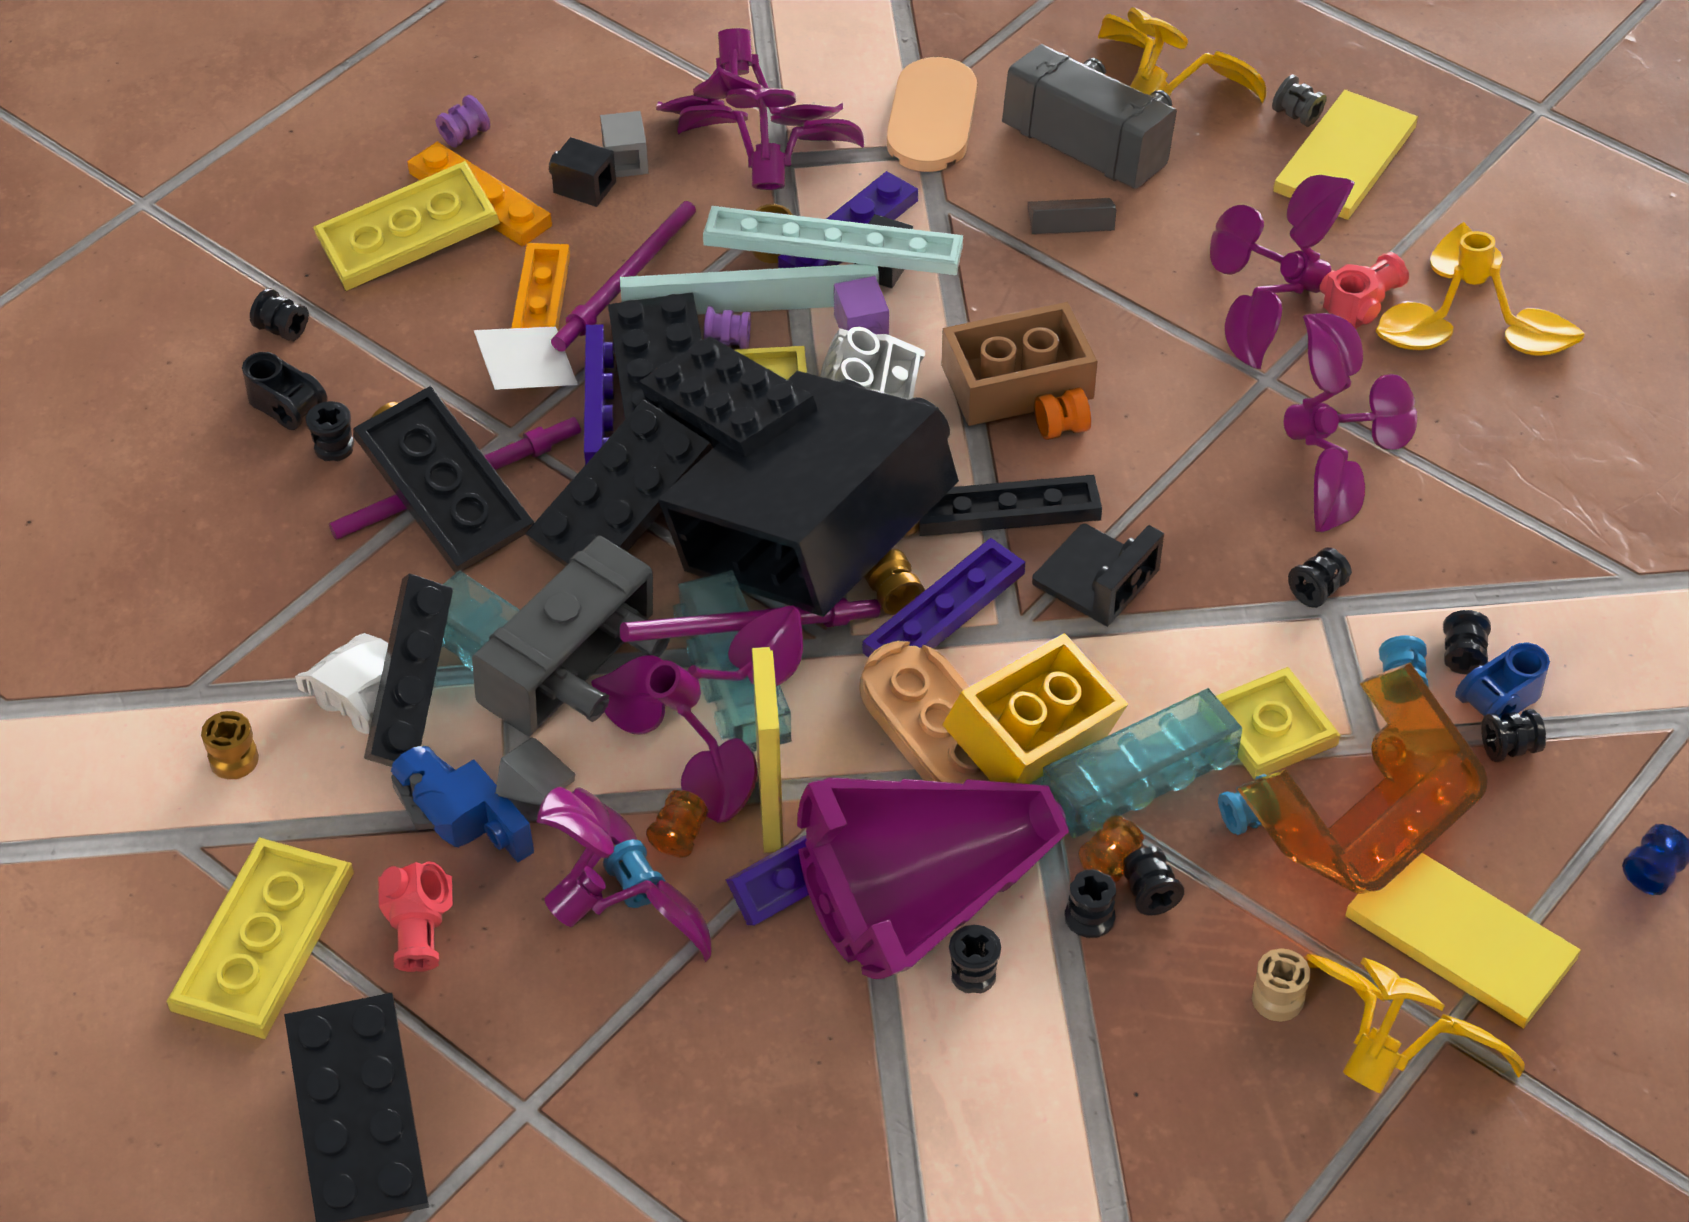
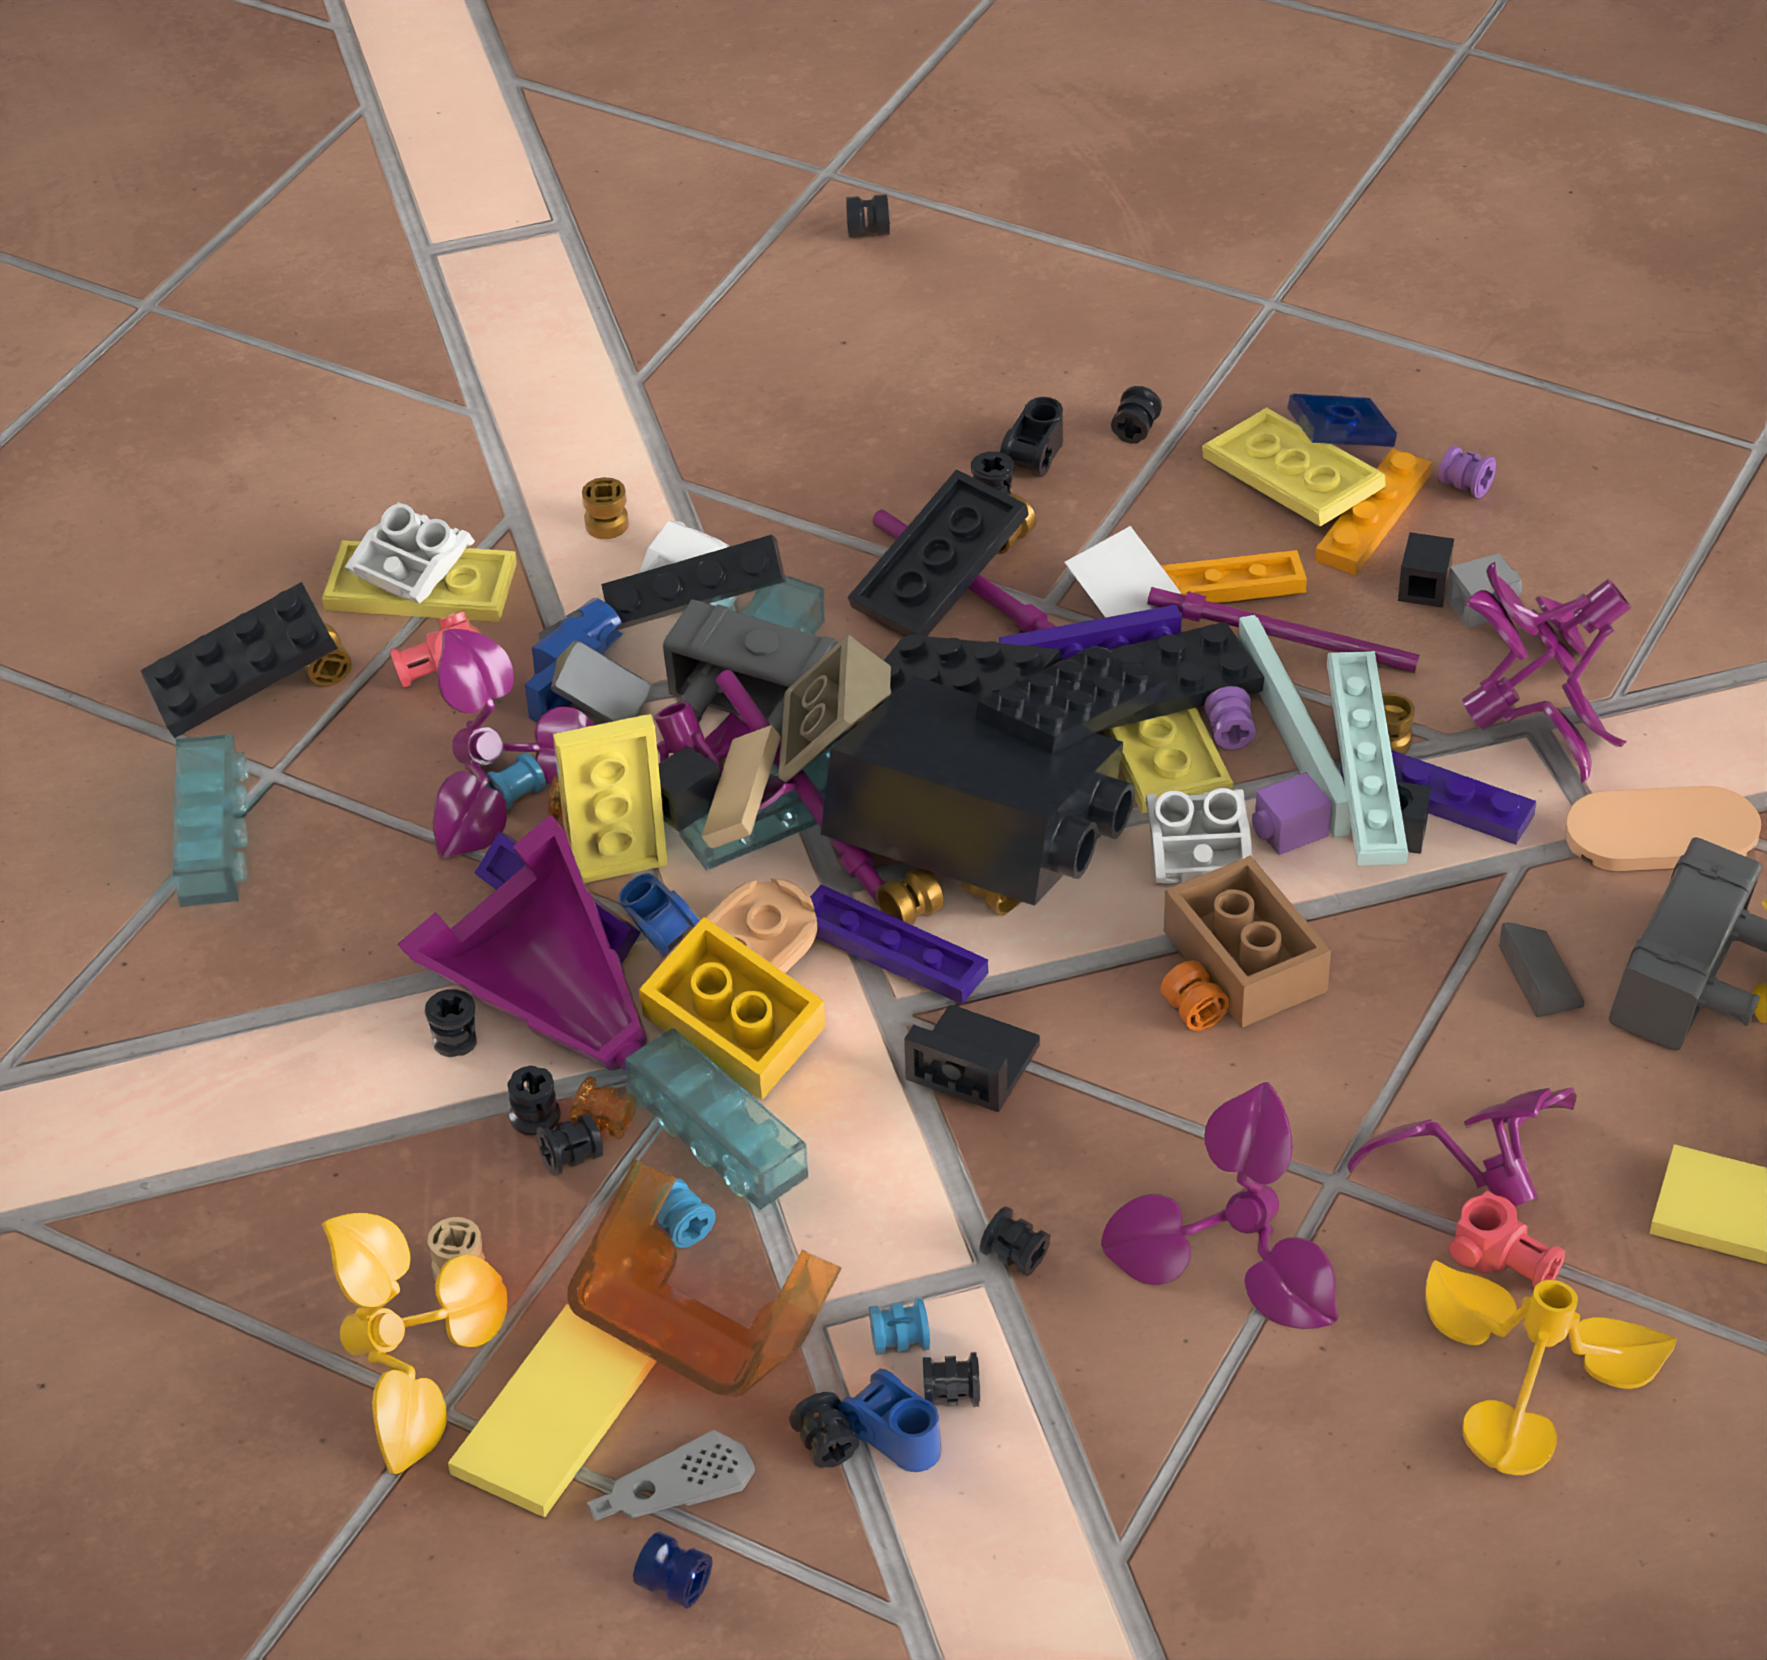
camera: 80 degrees right, 5 degrees down
(252, 919) = (408, 553): none -> white slope
(362, 179) = (1341, 420): none -> clear blue tile
(603, 1164) = (208, 820): none -> clear light blue brick
(712, 556) = (830, 703): none -> dark tan slope
(732, 703) = (687, 787): none -> black brick
(796, 653) = (741, 787): none -> tan tile
(885, 756) = (656, 910): none -> blue piece
(1014, 505) = (1048, 975): black plate -> none
(1277, 722) = (808, 1216): light yellow tile -> none
(1548, 842) = (672, 1482): none -> light grey piece

